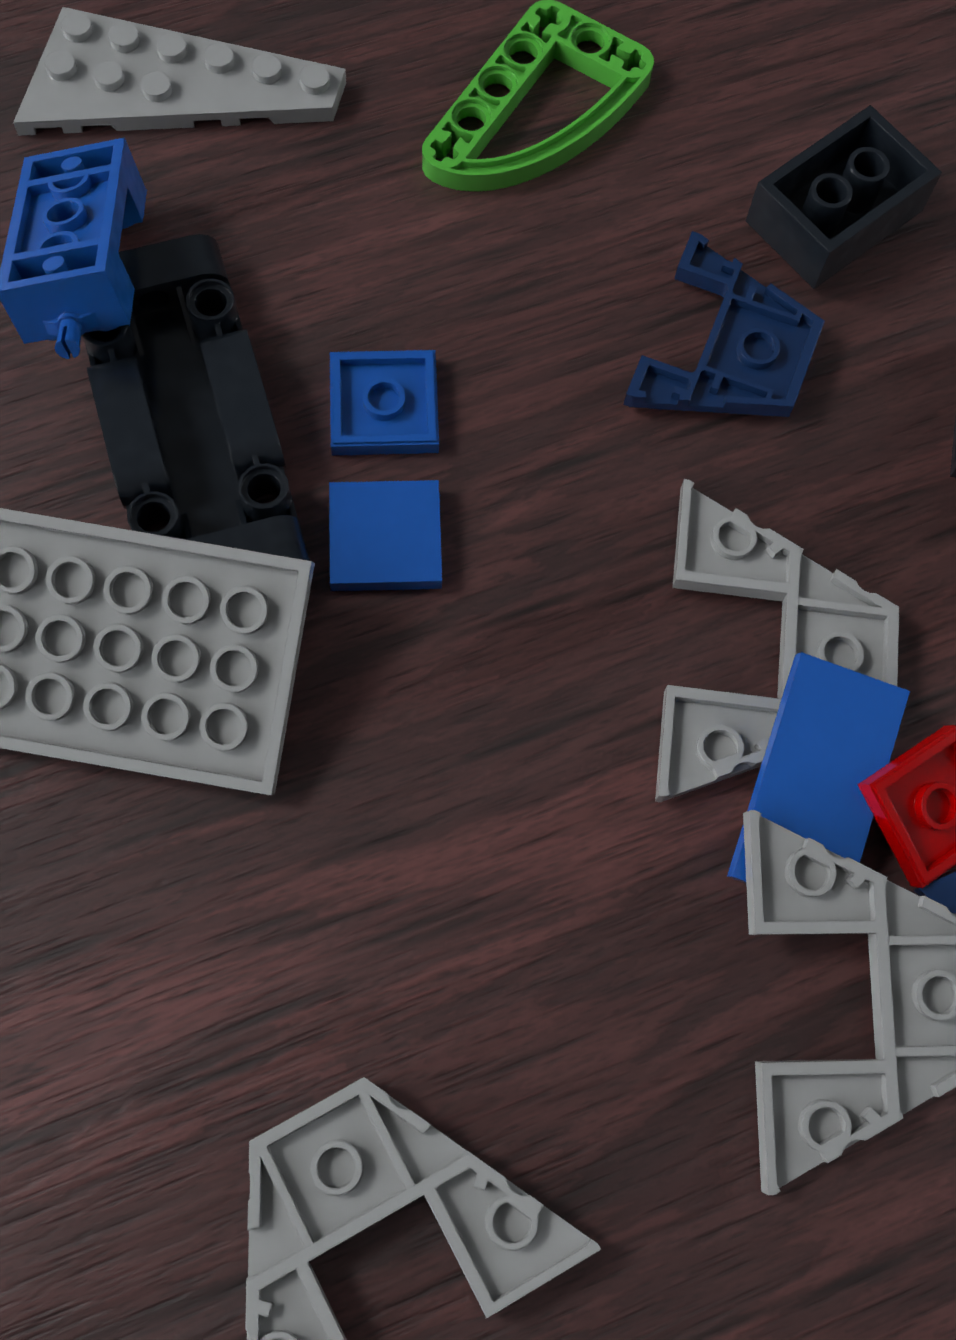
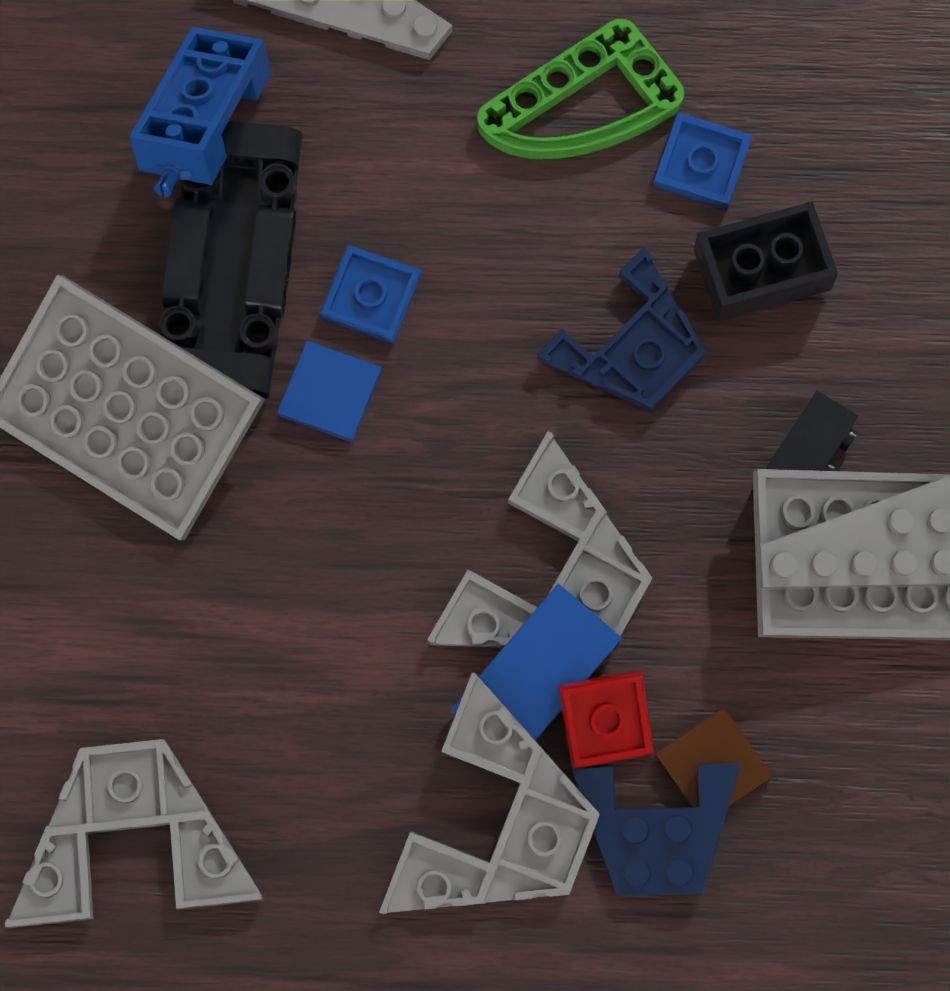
camera: 30 degrees right, 5 degrees up
(706, 123) = (702, 161): none -> blue tile

